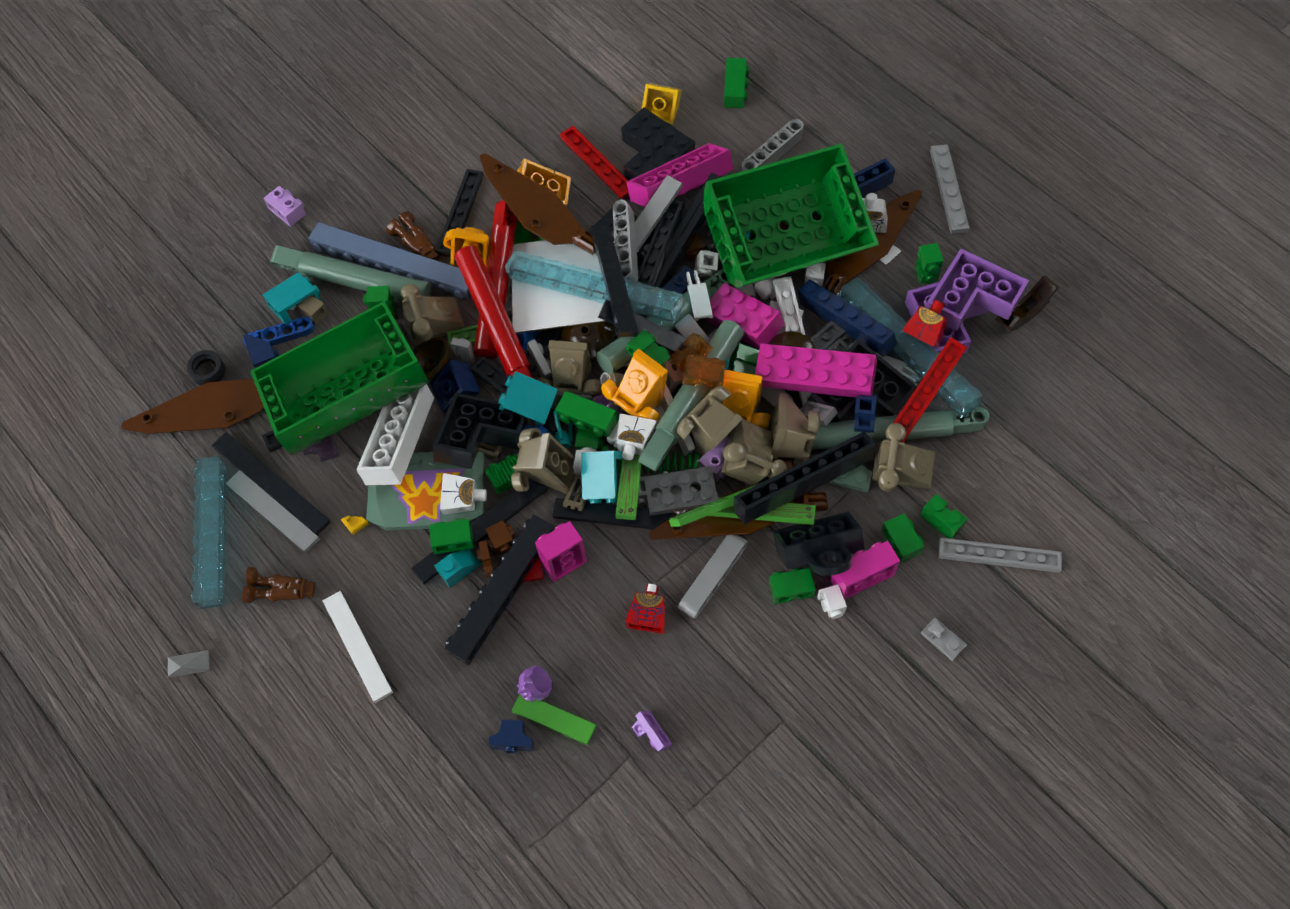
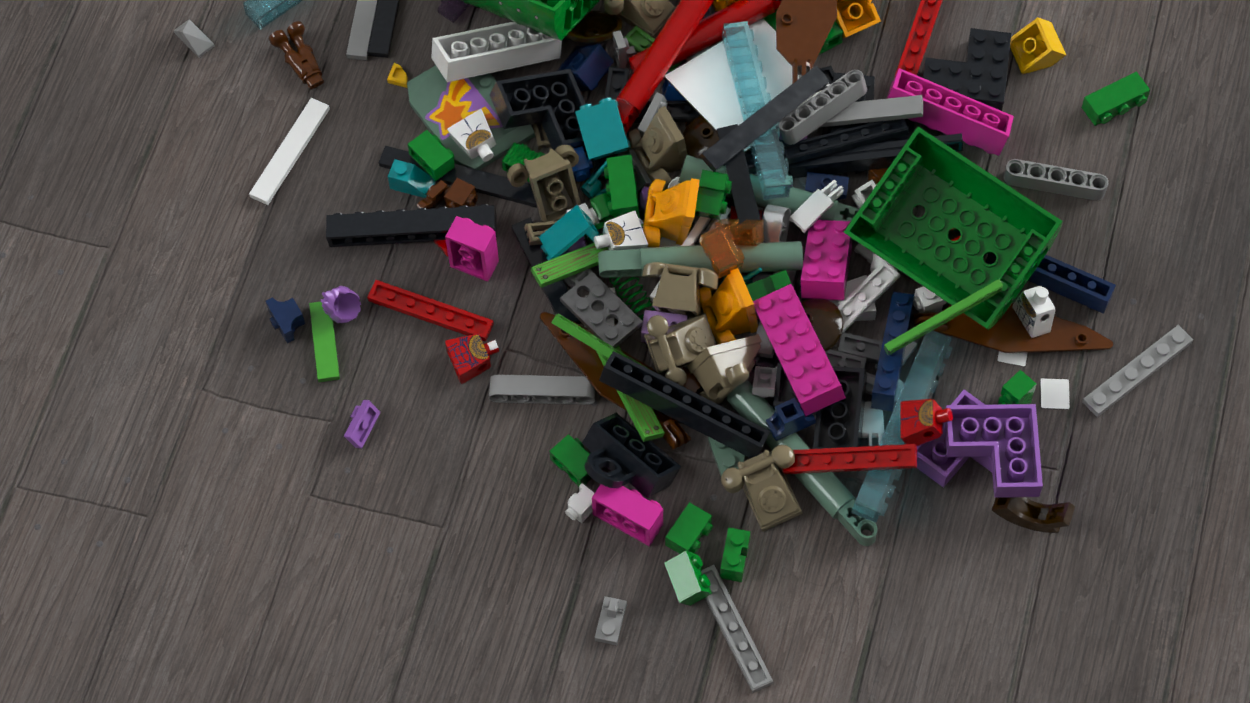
camera: 55 degrees right, 0 degrees up
(584, 619) = (429, 310): none -> red plate
(858, 260) = (943, 317): none -> bright green tile
(931, 238) = (1055, 393): none -> white sticker
(944, 560) = (687, 578): none -> brick

